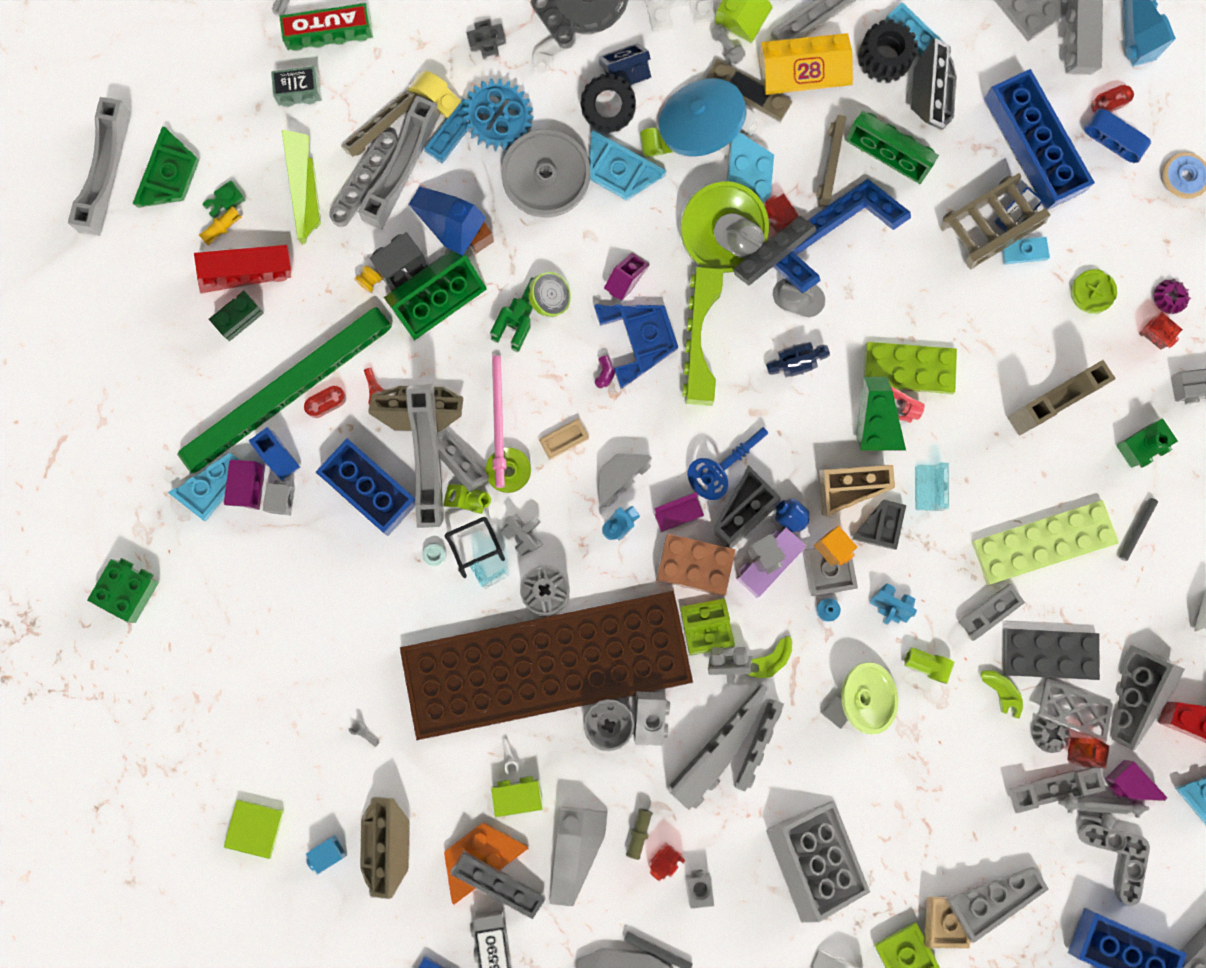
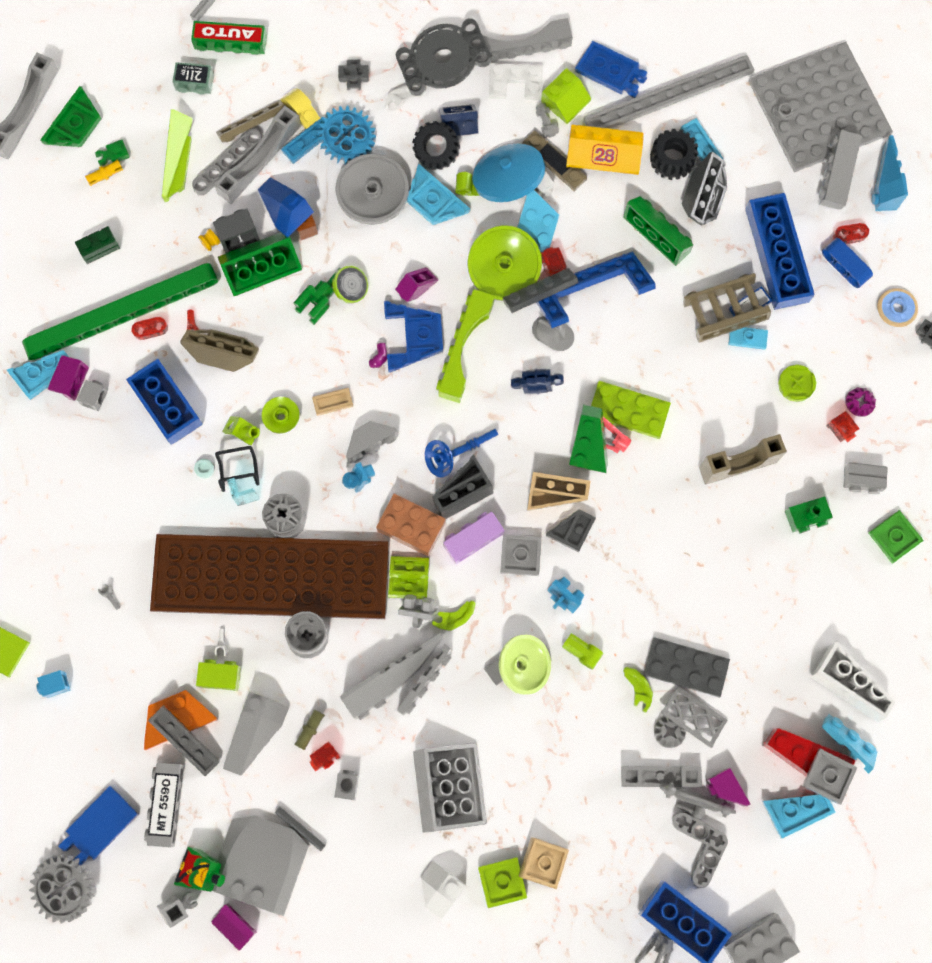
camera: 15 degrees right, 5 degrees down
(241, 267) = (111, 208): red wedge -> none
(274, 453) = (98, 358): blue slope -> none
(384, 847) = (102, 687): dark tan wedge -> none
(426, 454) = (220, 361): light grey arch -> none
(460, 462) = (242, 397): light grey plate -> none
(499, 462) = (274, 406): bright pink bar -> none
(529, 541) = (281, 467): light grey hips -> none
(650, 732) = (334, 647): light grey brick -> none
(678, 512) = (409, 480): magenta panel -> none
(738, 235) = (514, 271): light grey piece -> none
(766, 554) = (467, 526): light grey brick -> none
(792, 515) = (500, 503): blue head -> none
(823, 612) = (511, 592): dark azure tile -> none
(825, 189) = (615, 208): dark tan plate -> none
(836, 547) = (526, 534): light orange brick -> none
(932, 487) = (621, 509): clear light blue panel -> none
(992, 611) = (645, 620): light grey plate -> none
(995, 902) = (582, 856): light grey wing -> none
(1045, 542) = (704, 575): yellowish green plate -> none
(1088, 752) = (694, 752): clear red brick -> none
(1138, 529) = (785, 583): dark grey bar -> none
(1143, 692) = (757, 713): light grey wedge -> none

